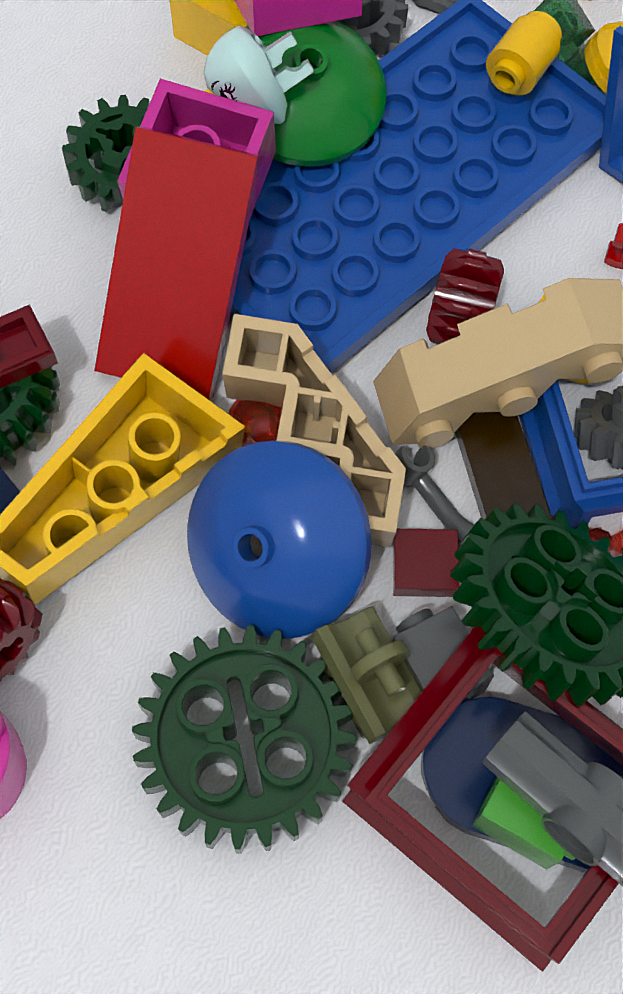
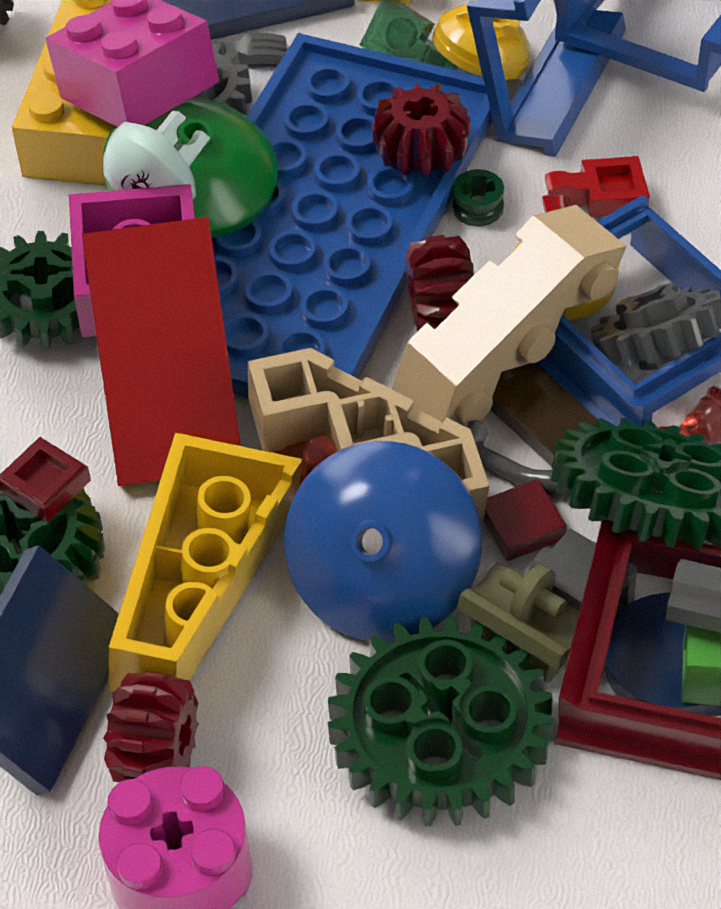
camera: 20 degrees left, 15 degrees down
(524, 53) = (382, 61): yellow brick -> none
(525, 134) = (421, 129): none -> dark red gear
(553, 203) = (478, 183): none -> dark green bush

